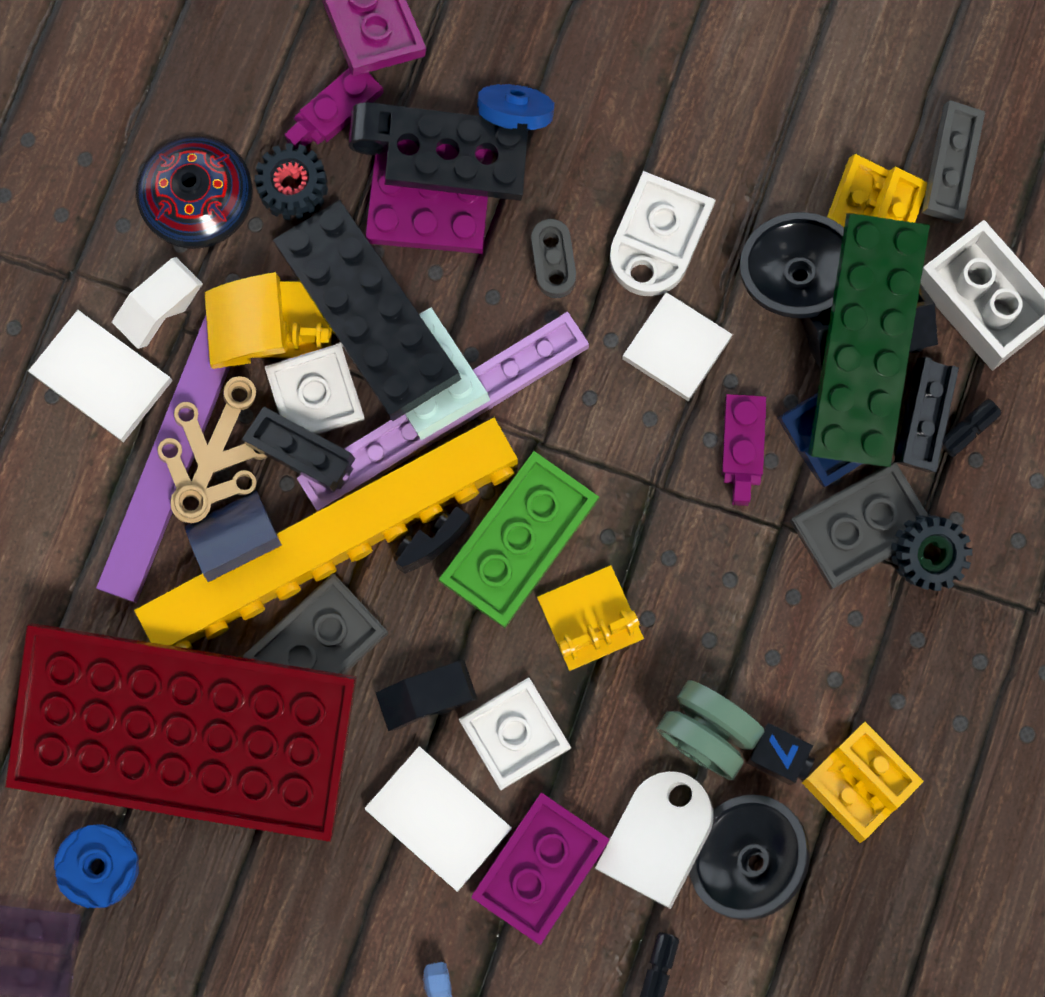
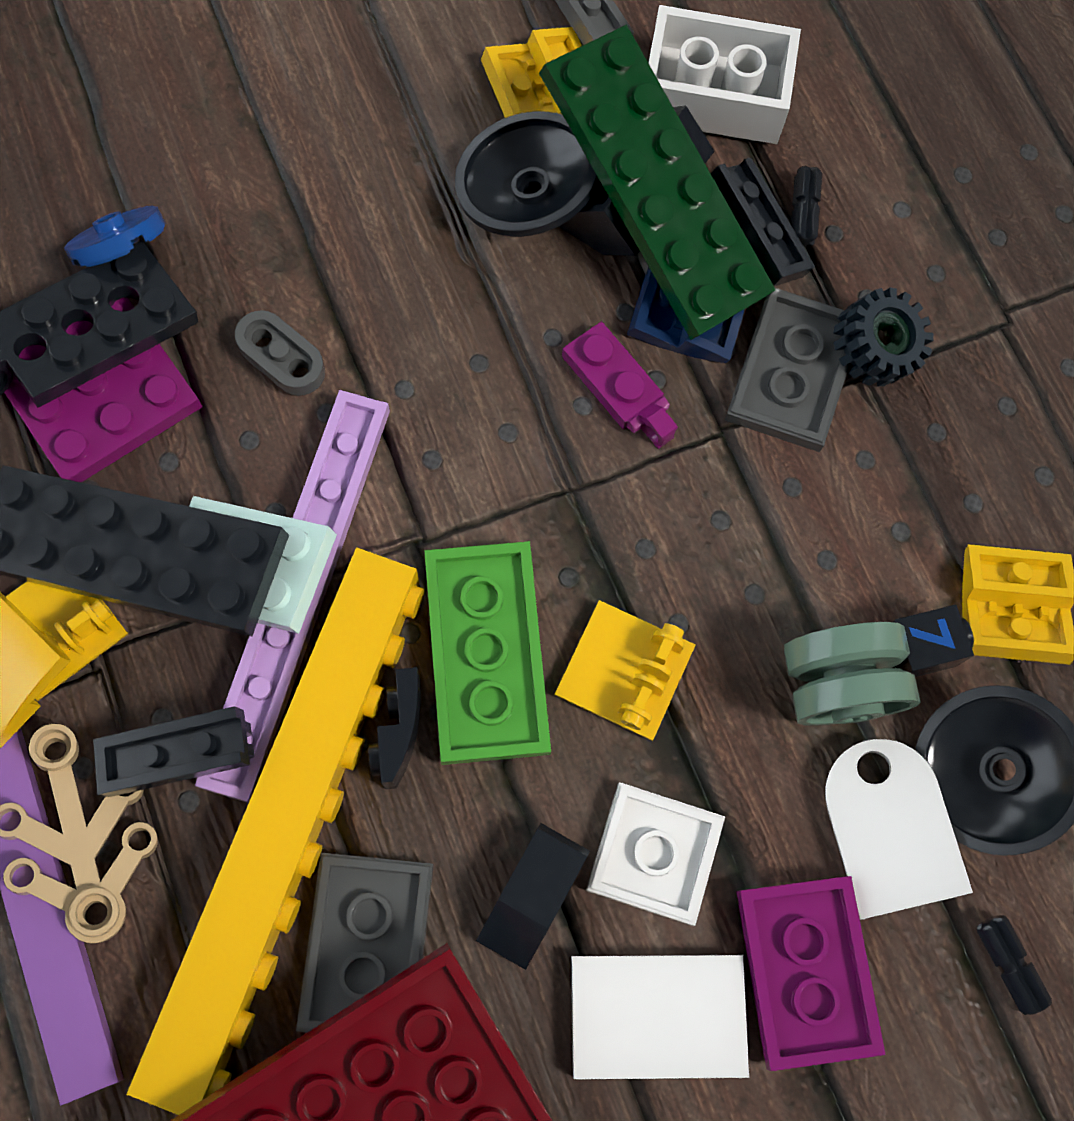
camera: 50 degrees left, 5 degrees down
(232, 536) = (174, 911): dark blue slope -> none
(316, 390) = (138, 676): white tile -> none
(658, 232) = (364, 253): white tile -> none
(677, 346) = (475, 343): white tile -> none

